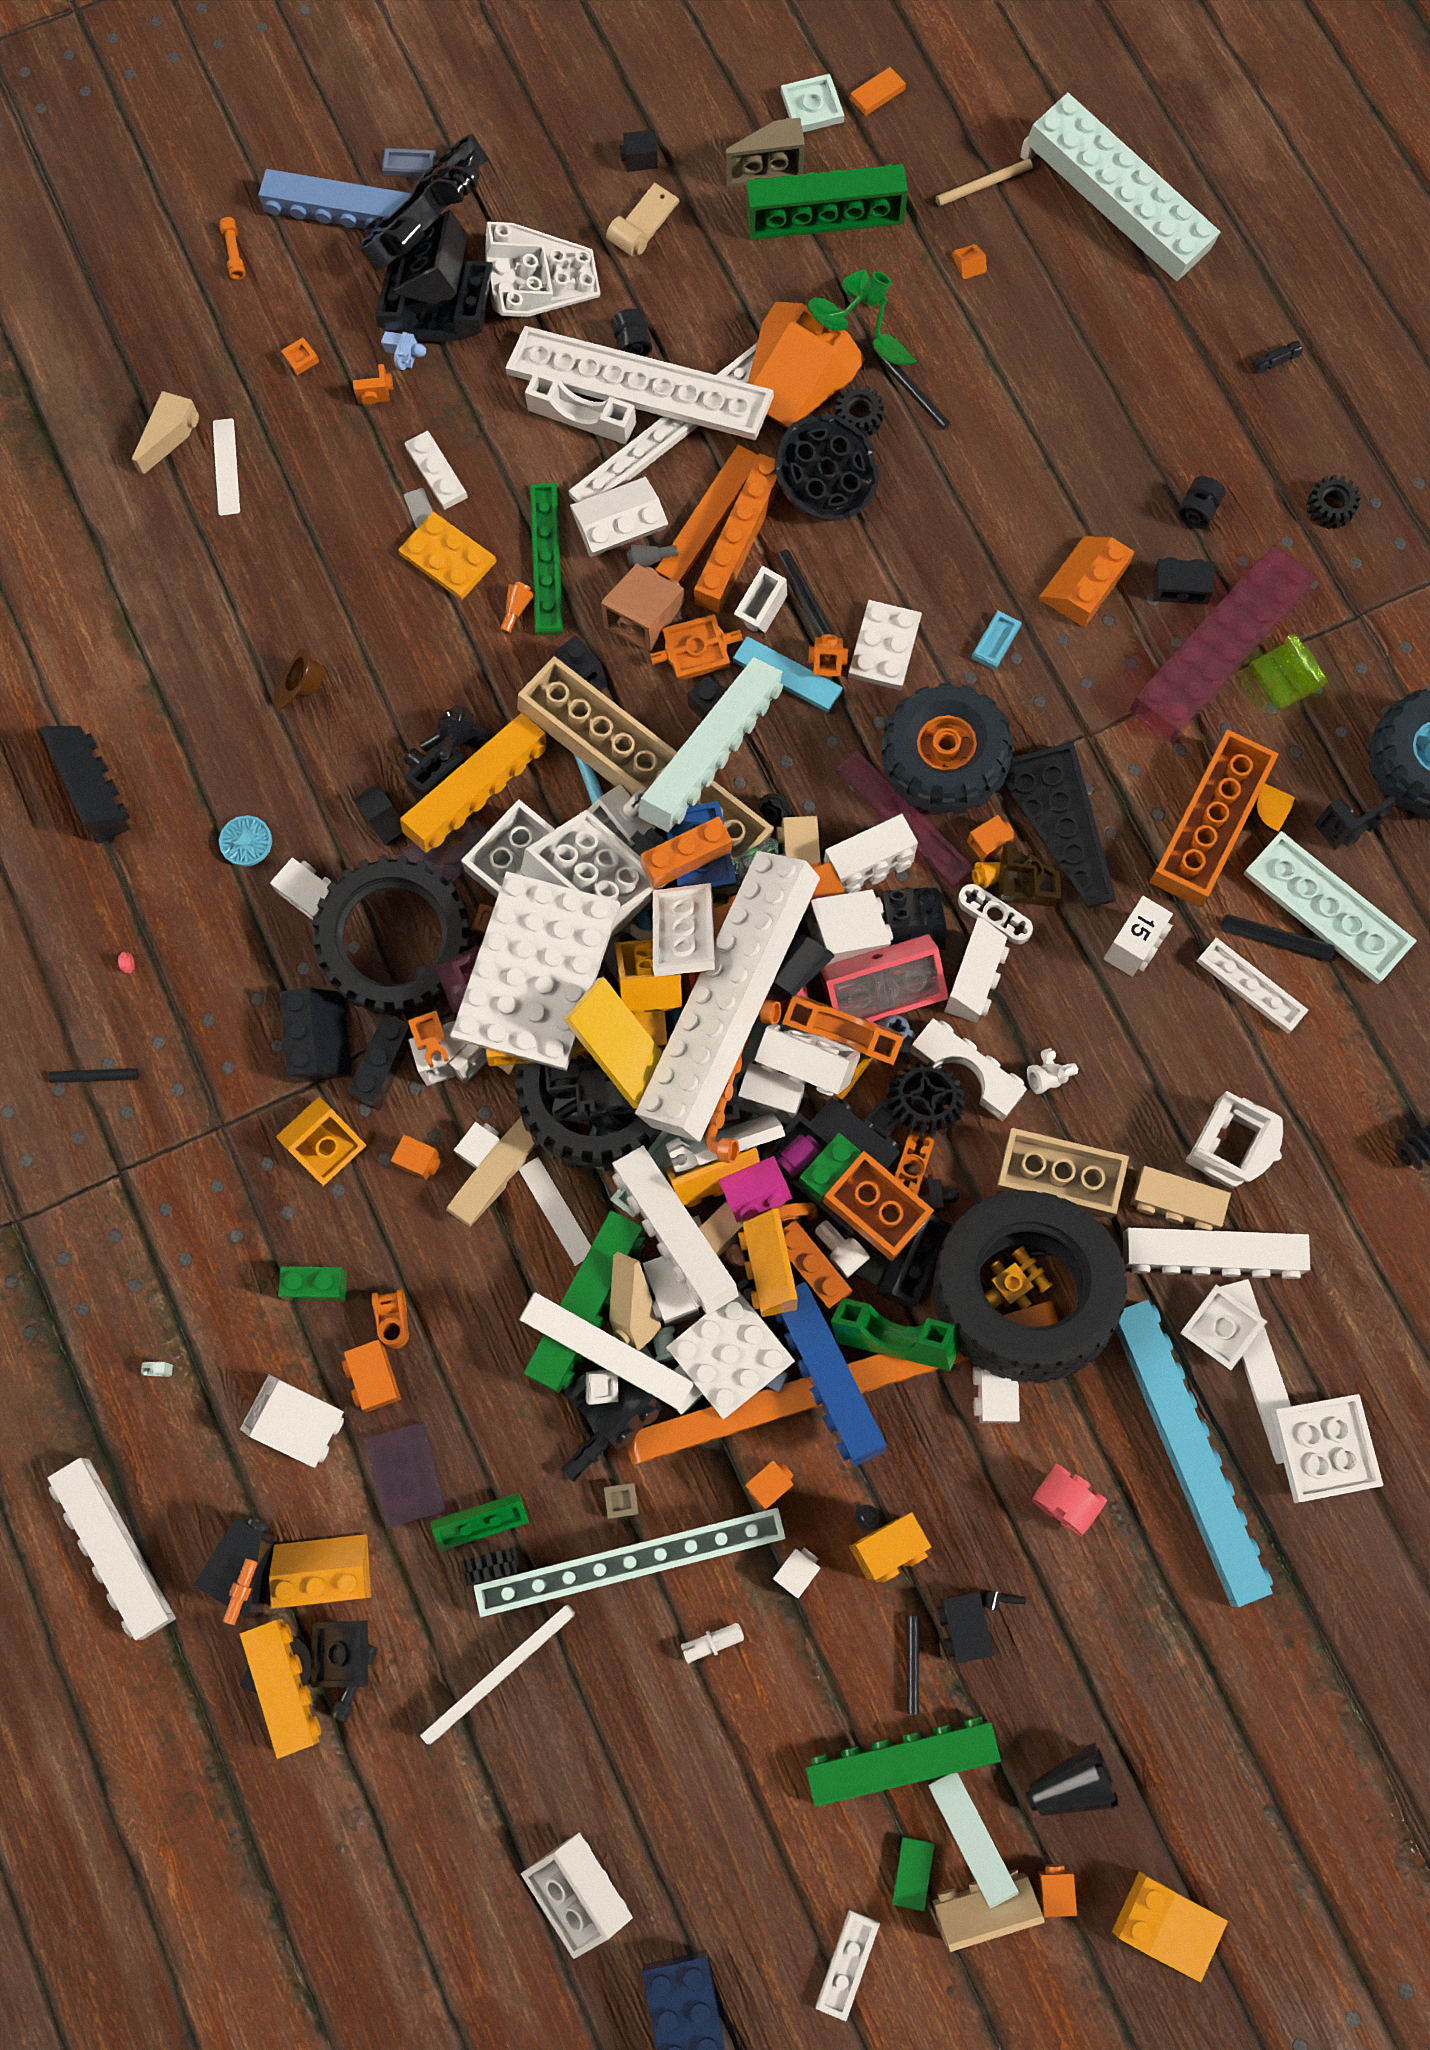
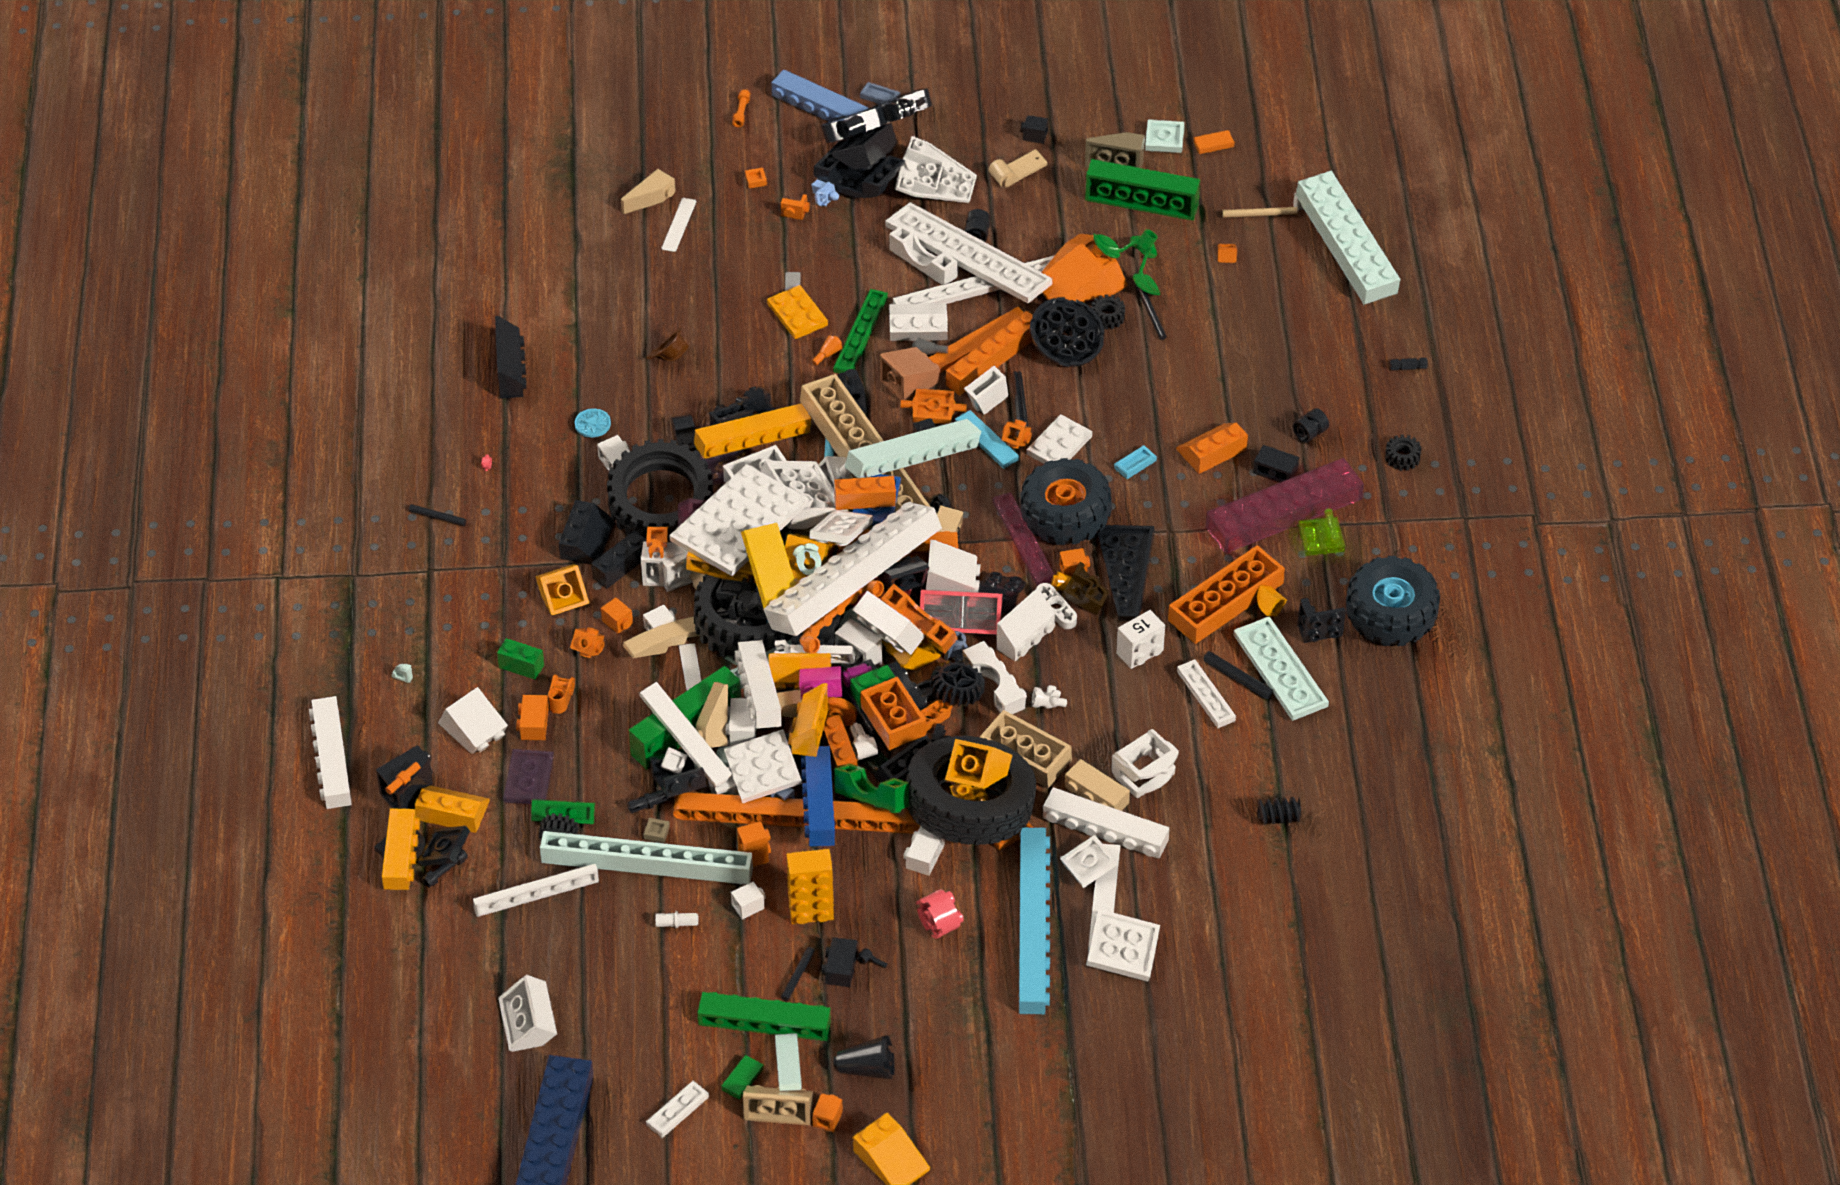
camera: 20 degrees right, 25 degrees down
(394, 1221) = (587, 642): none -> orange brick
(436, 470) = (813, 264): white plate -> none
(668, 995) = (800, 556): none -> light aqua piece
(873, 854) = (991, 542): white brick -> none
(1041, 1265) = (977, 764): none -> light orange slope

